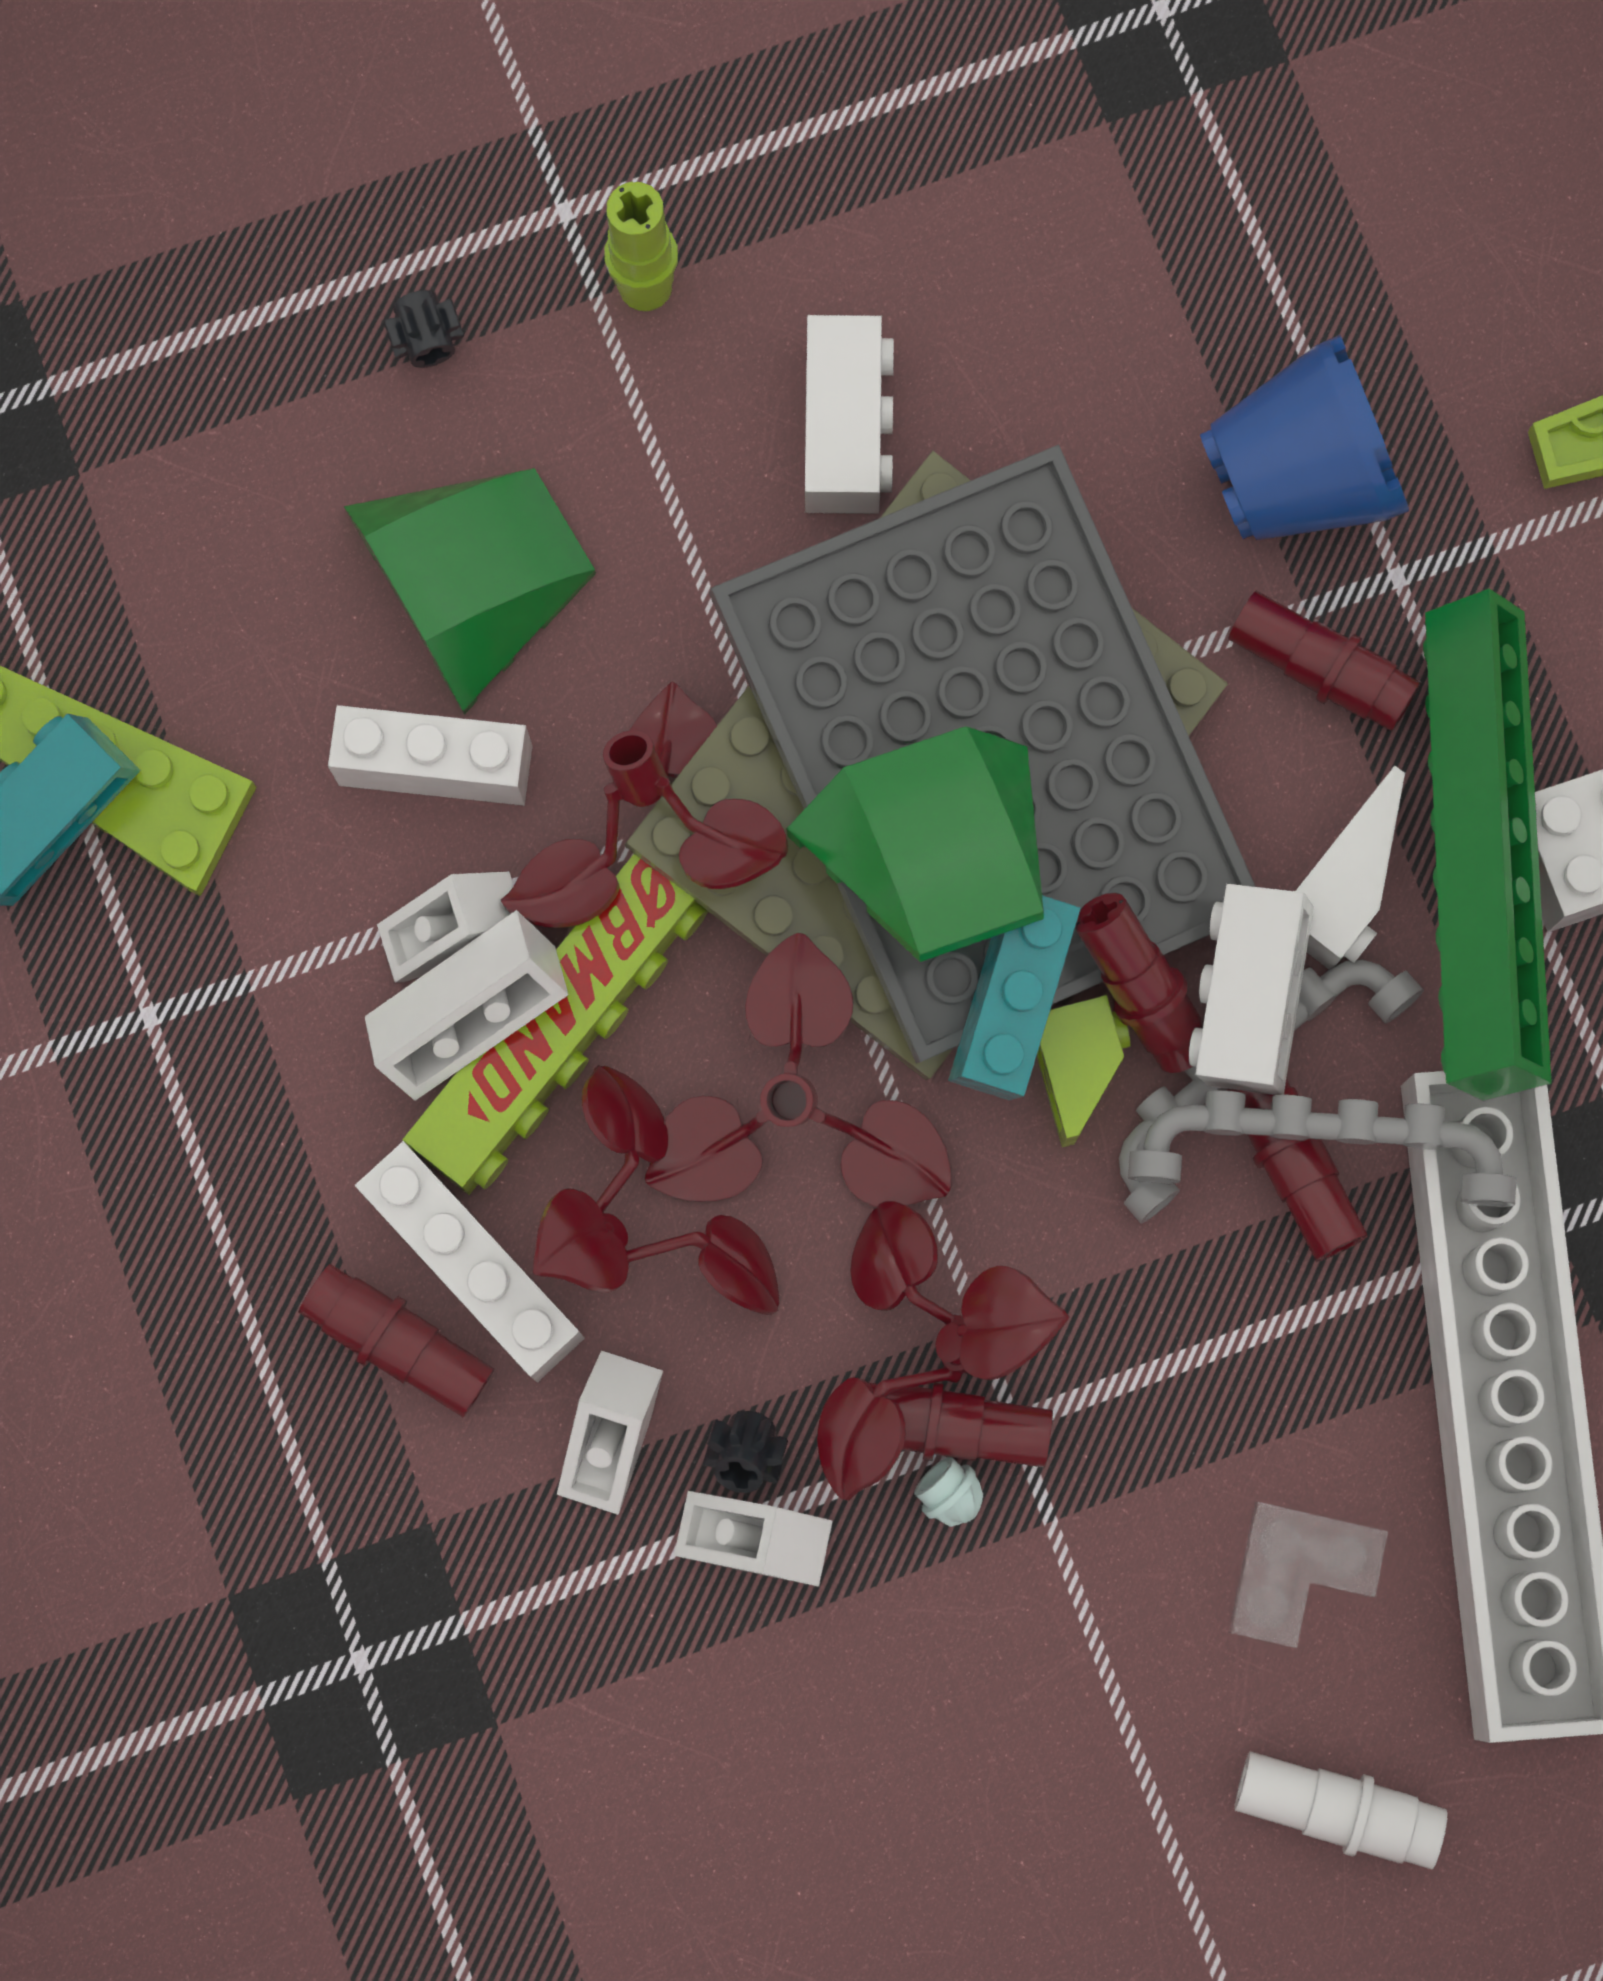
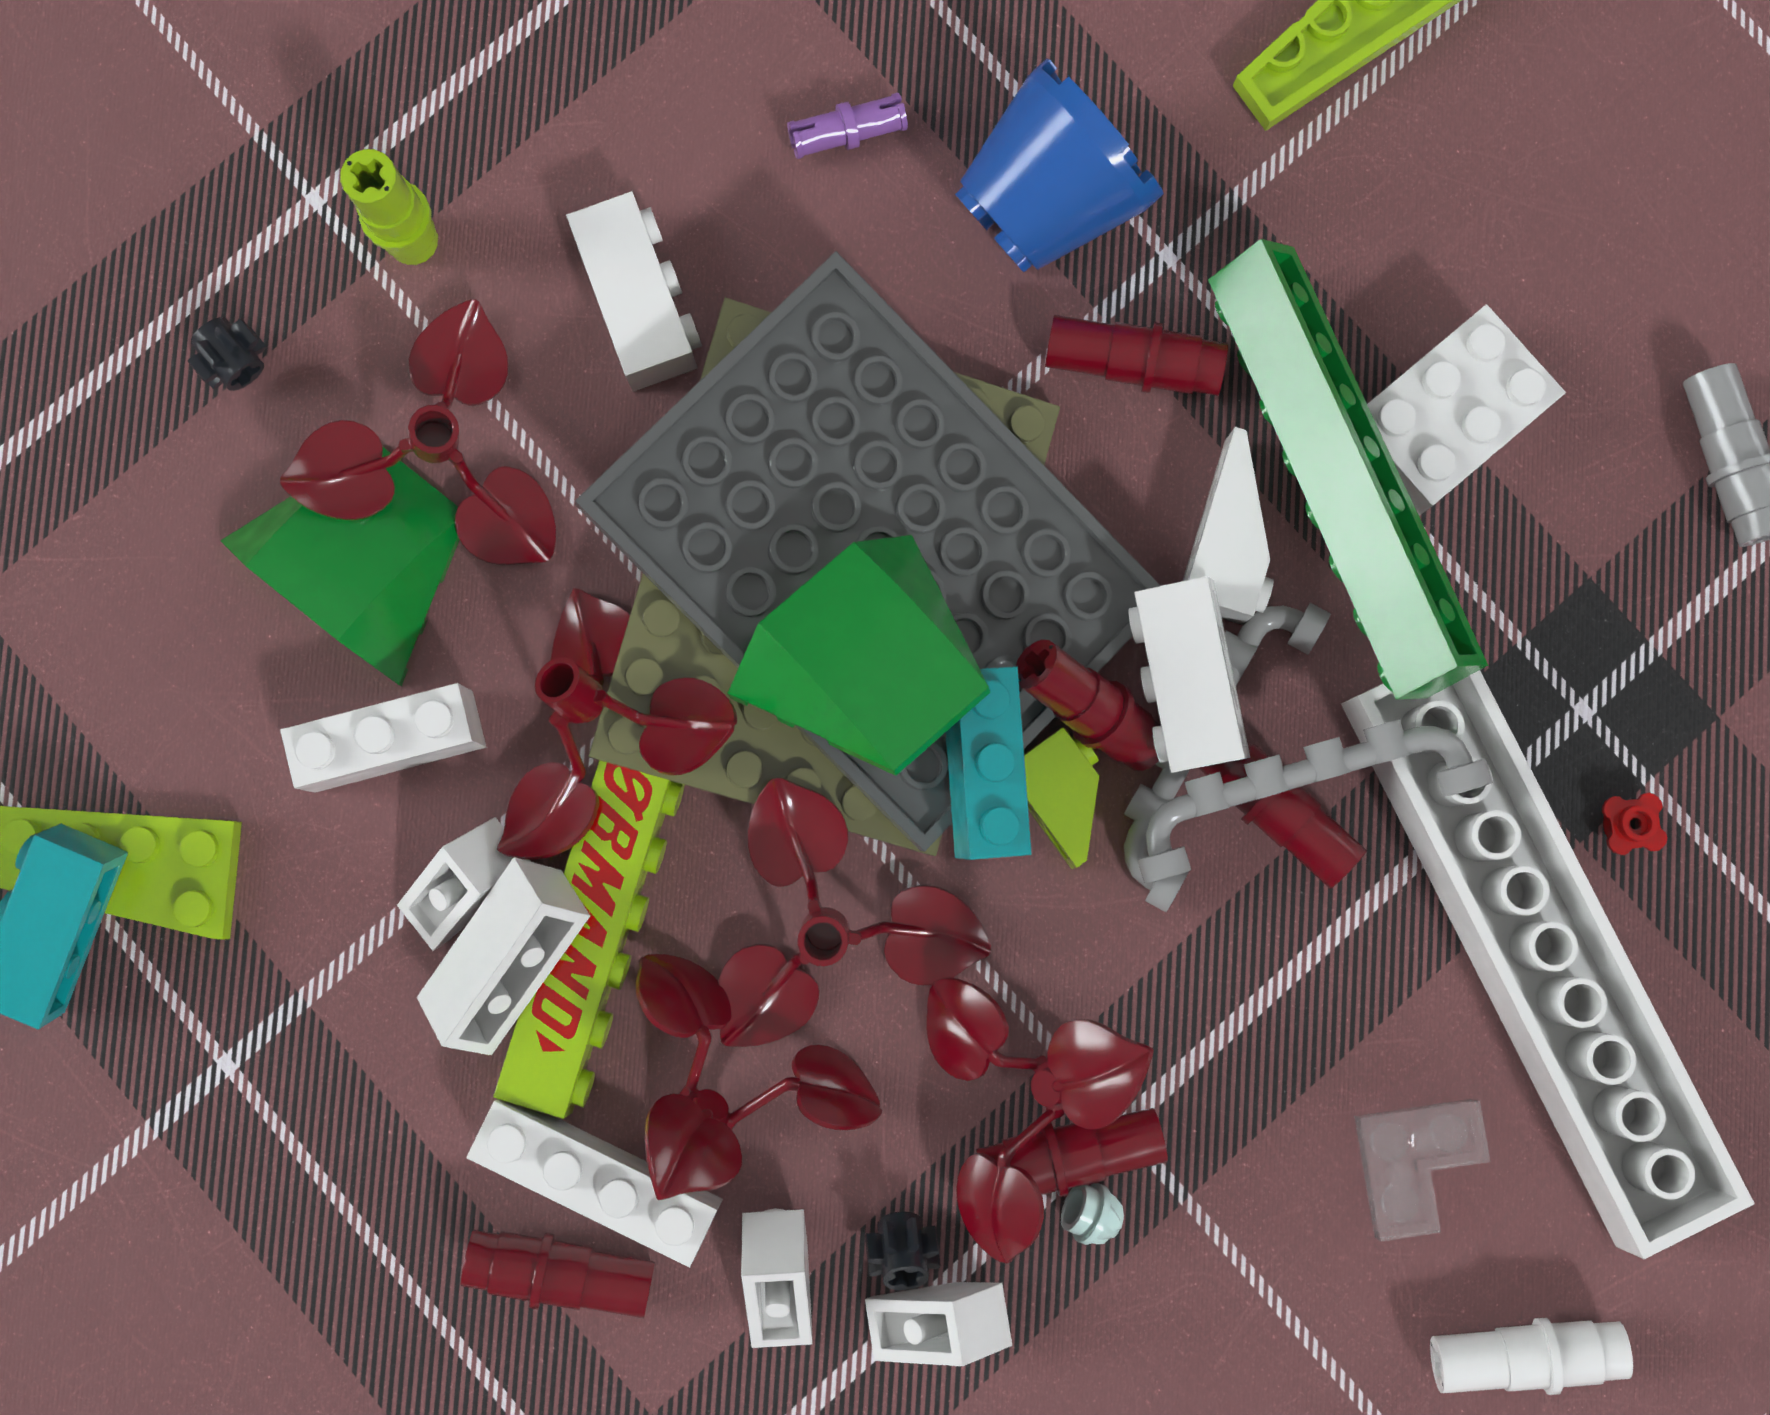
camera: 25 degrees left, 5 degrees up
(495, 487) = (346, 477): none -> dark red plant
(1121, 330) = (847, 125): none -> medium lavender pin

